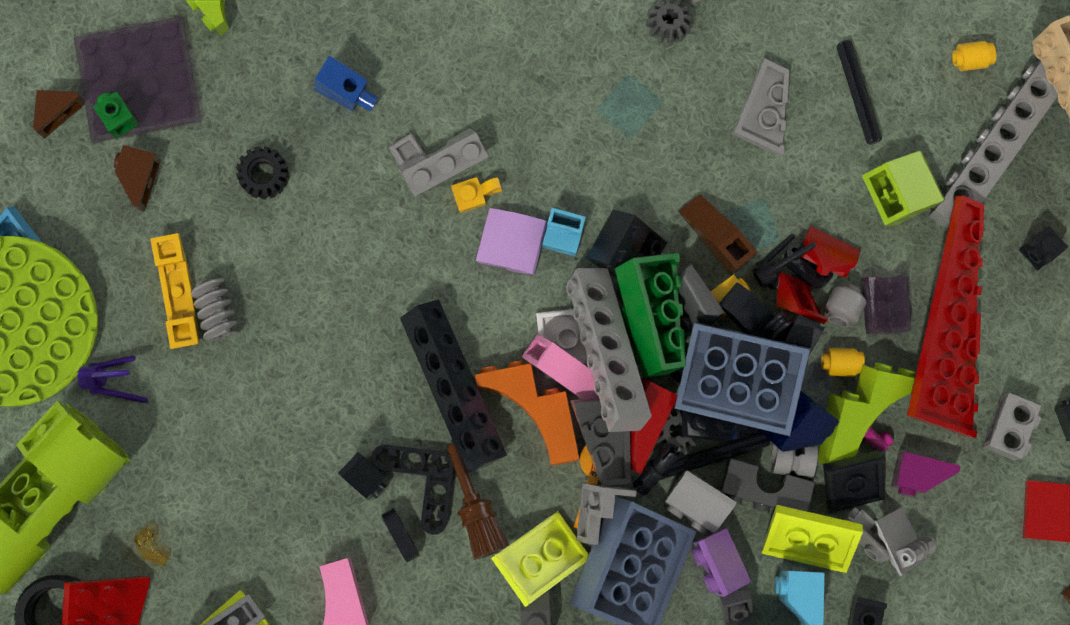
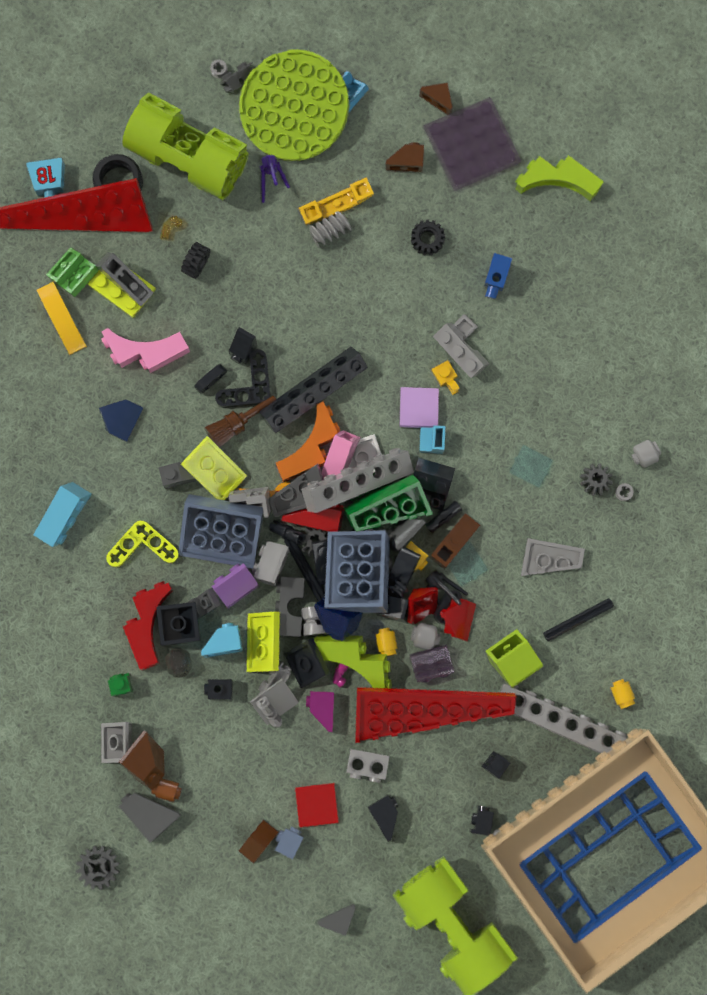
camera: 75 degrees right, 0 degrees up
(121, 120) = (442, 140): green brick -> none
(214, 519) = (195, 260): none -> black tyre
(677, 241) = (443, 517): none -> black pin

